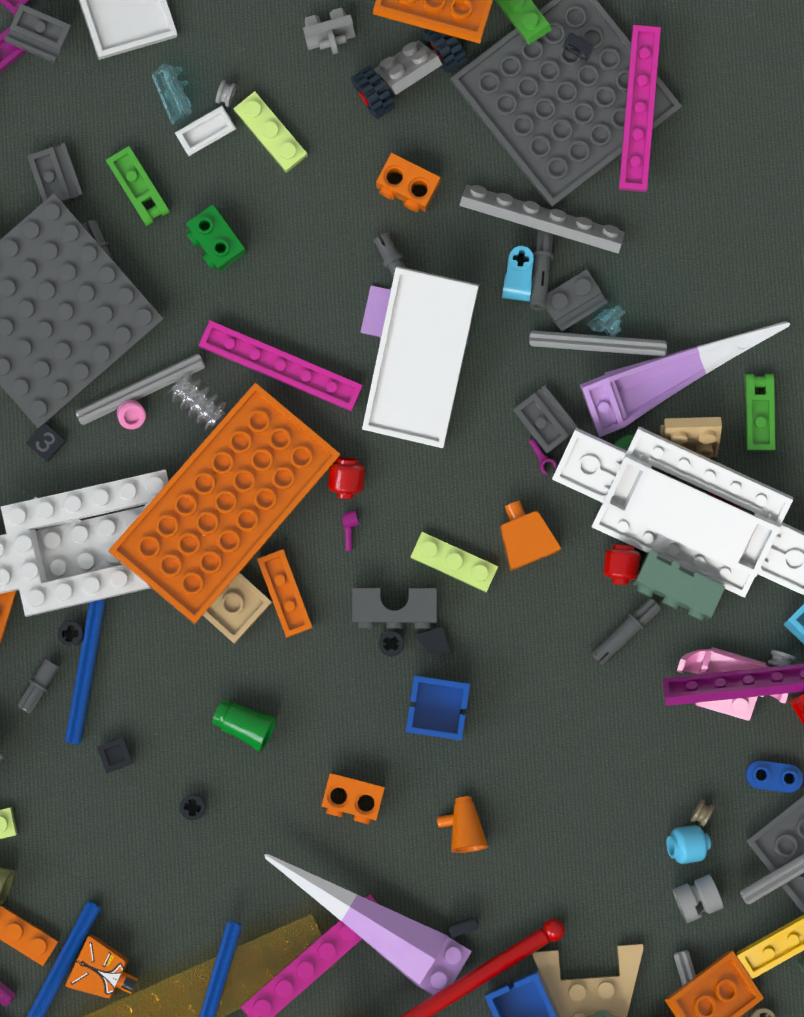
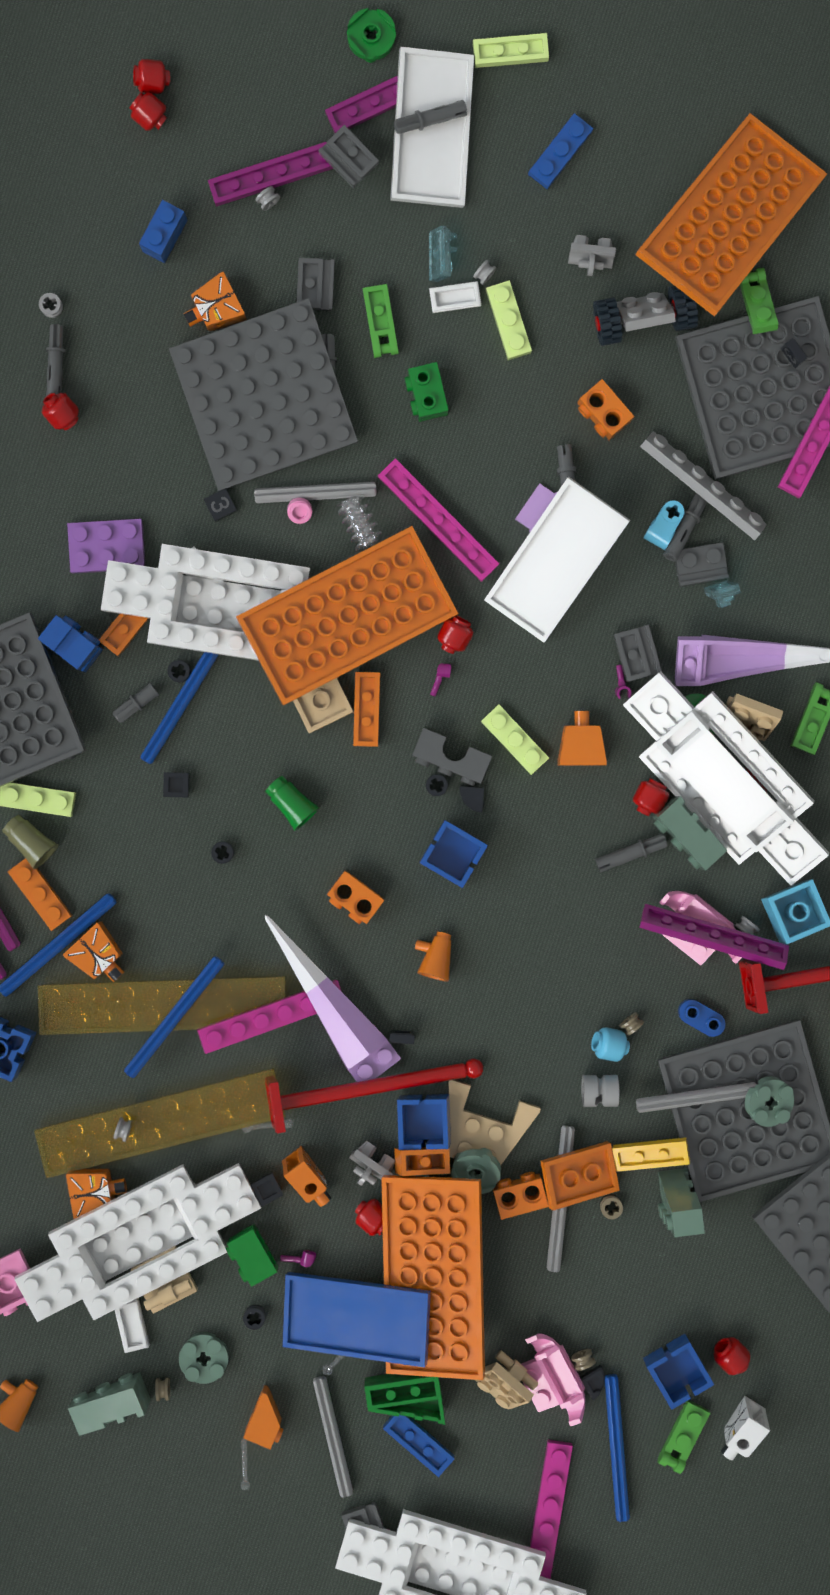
camera: 15 degrees right, 5 degrees up
(598, 343) = (706, 608): light grey axle -> none

